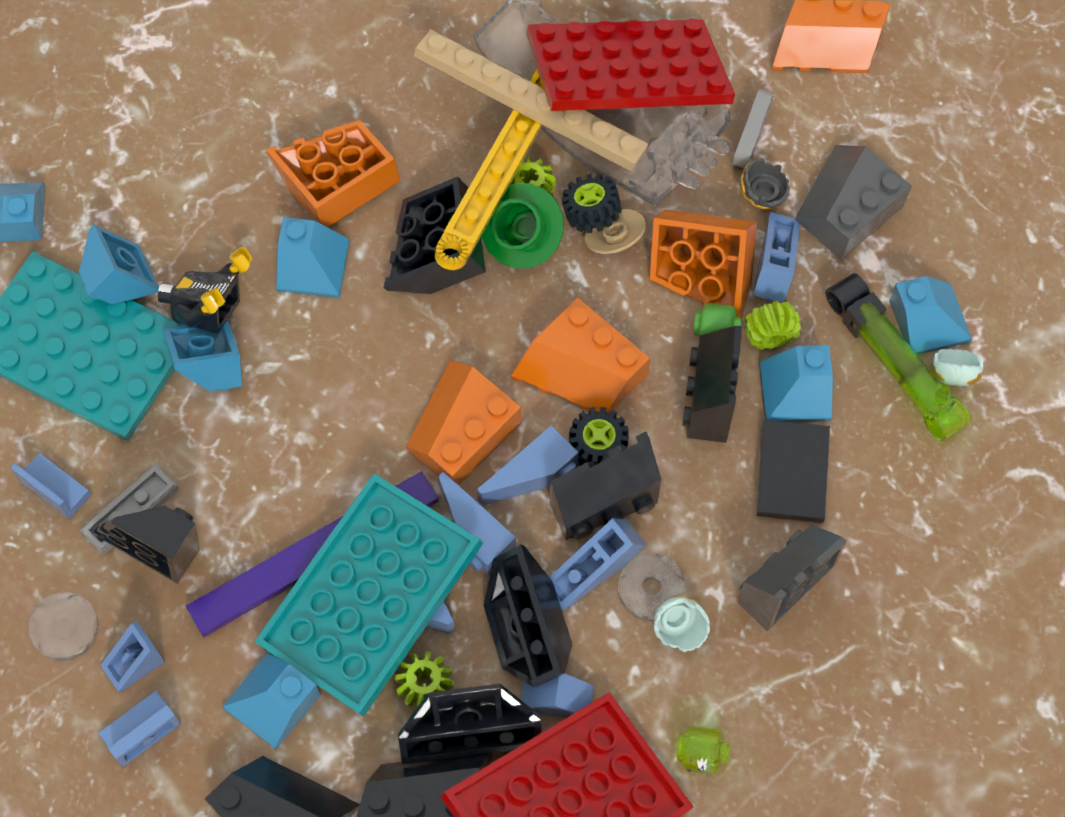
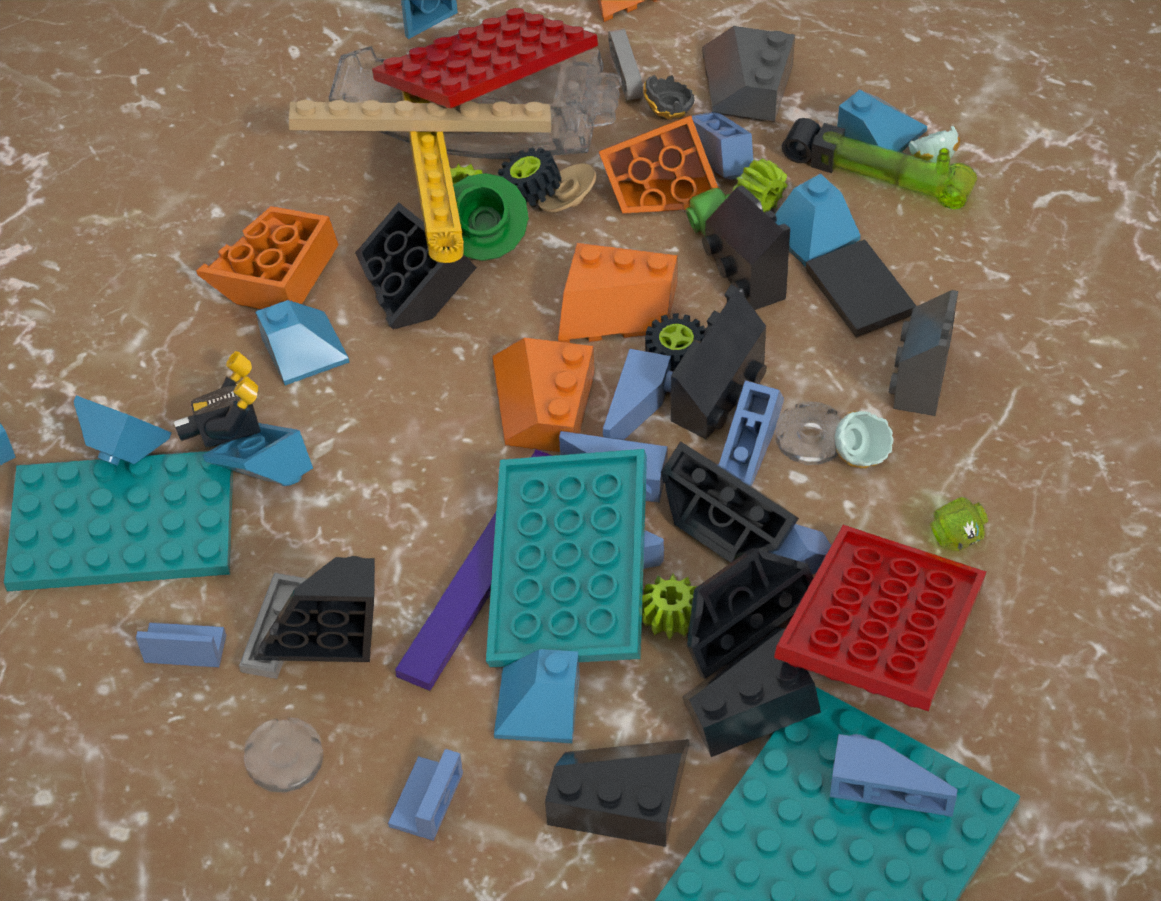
camera: 30 degrees left, 15 degrees down
(131, 658) = (376, 735): medium blue slope -> none

